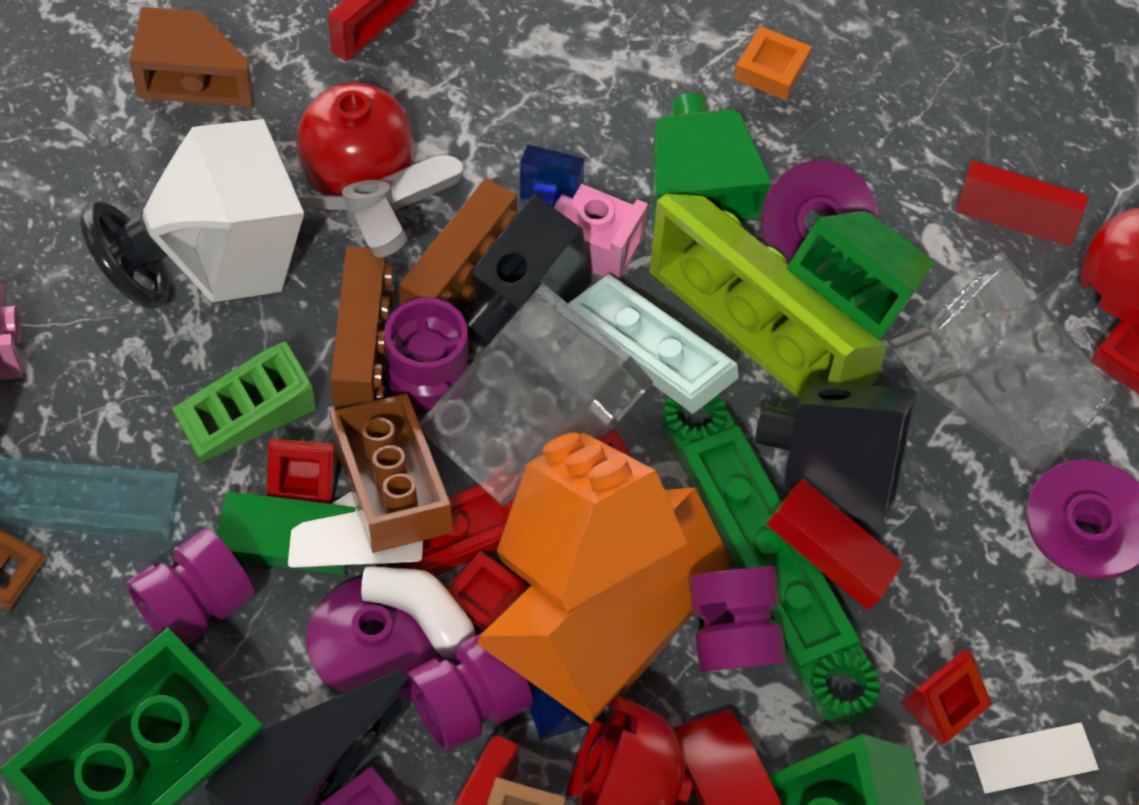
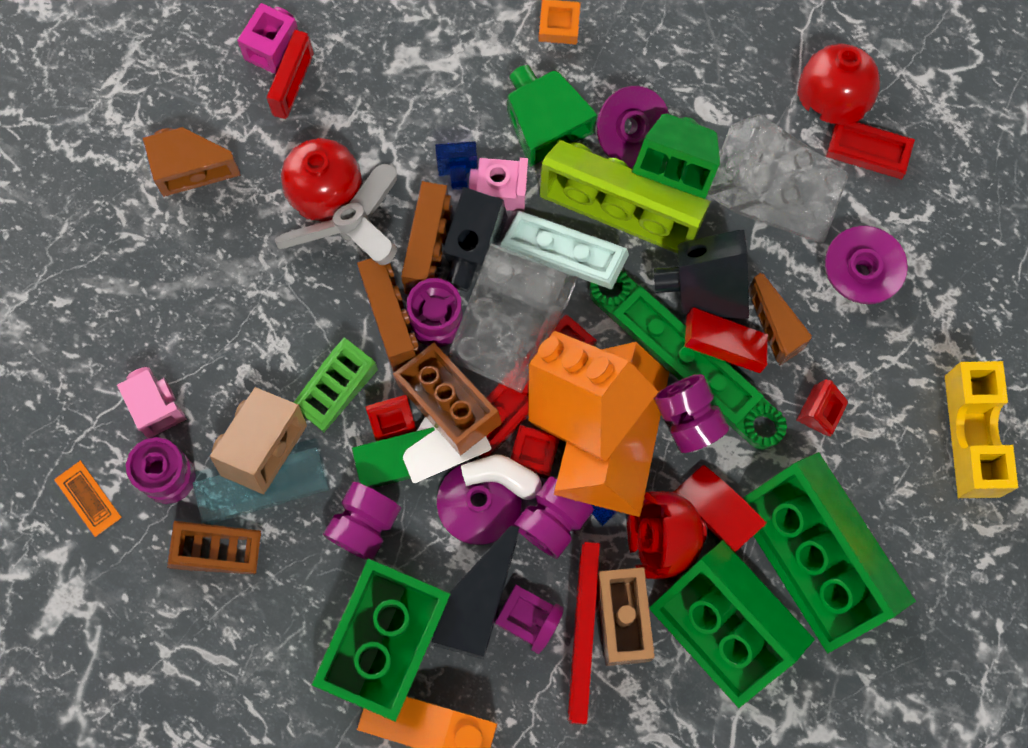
camera: 20 degrees left, 15 degrees up
(100, 428) = (258, 440): none -> brick
(216, 212) = (266, 271): white piece -> none
(930, 562) = (784, 329): none -> dark orange slope
(1022, 203) = (750, 66): red tile -> none
(1033, 757) = (882, 424): white sticker -> none

